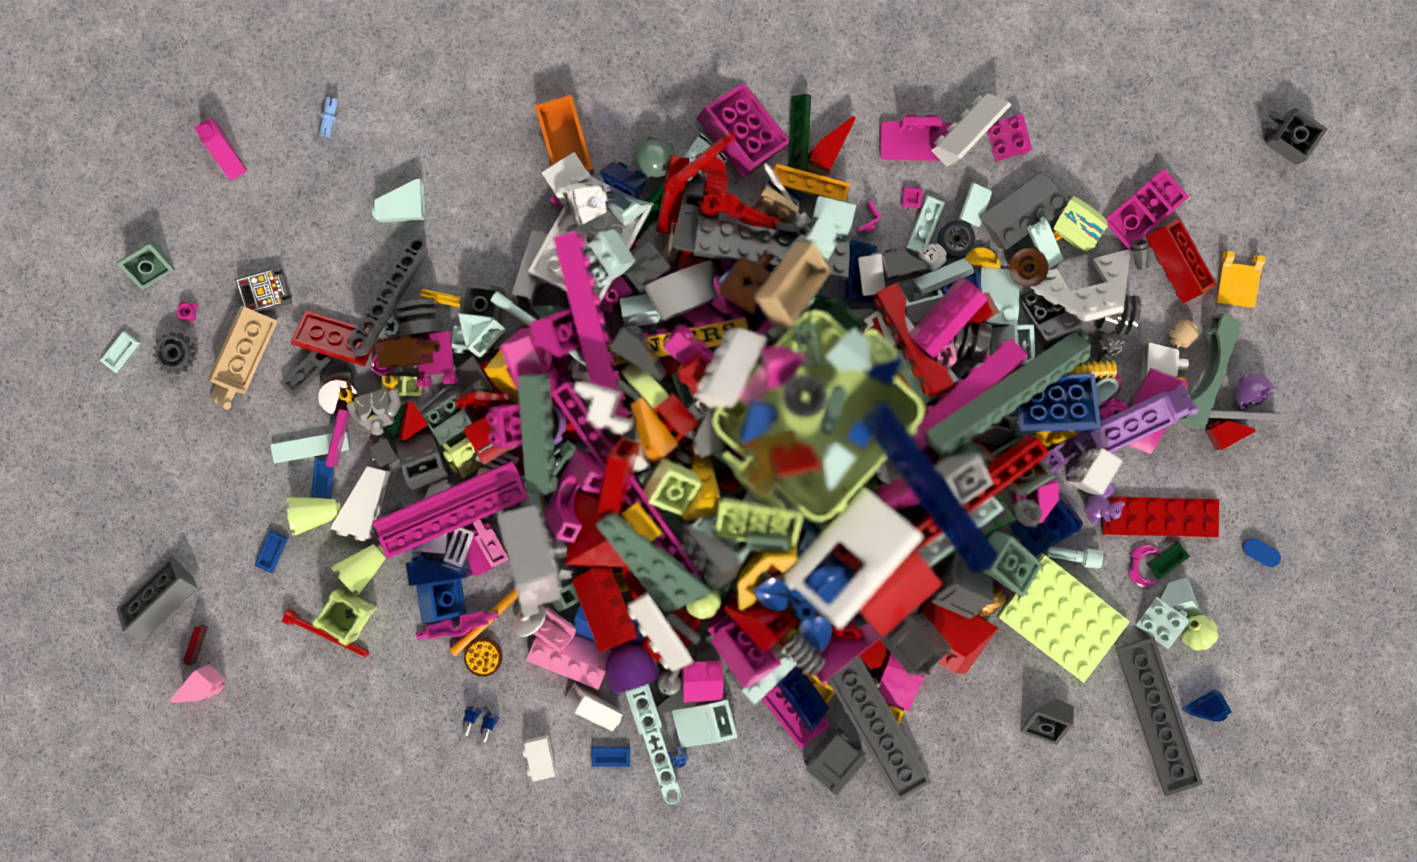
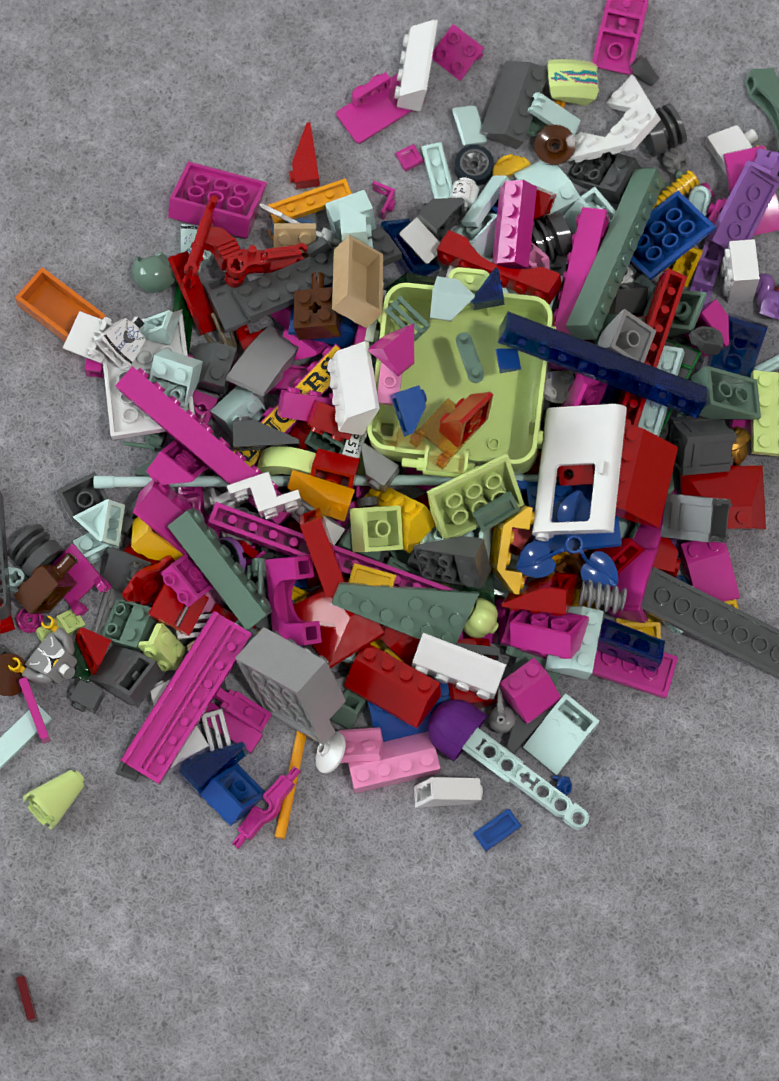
camera: 30 degrees left, 15 degrees down
(201, 684) = (59, 1031): bright pink slope -> none
(271, 551) = (41, 863): blue tile -> none
(292, 618) = (103, 910): red piece -> none
(322, 480) = (43, 761): blue tile -> none
(334, 616) = (143, 858): yellowish green container -> none
(360, 568) = (136, 817): yellowish green cone -> none
(363, 505) = (100, 758): white slope -> none
(442, 298) = (50, 521): yellow axle -> none
(483, 657) = (311, 821): tile -> none
(489, 720) = (360, 876): clear blue piece -> none
(526, 284) = (113, 449): light grey slope -> none
(539, 758) = (431, 875): white brick -> none
(623, 179) = (140, 307): clear blue slope -> none
(793, 392) = (431, 347): dark grey wheel -> none
(799, 132) = (268, 166): dark green plate -> none
(835, 760) = (705, 682): dark grey container -> none
(836, 463) = (505, 397): light aqua slope -> none
(1181, 260) = (682, 53): red slope -> none
(1183, 334) = (731, 111): tan head -> none
(1239, 282) = (747, 38): yellow flag -> none

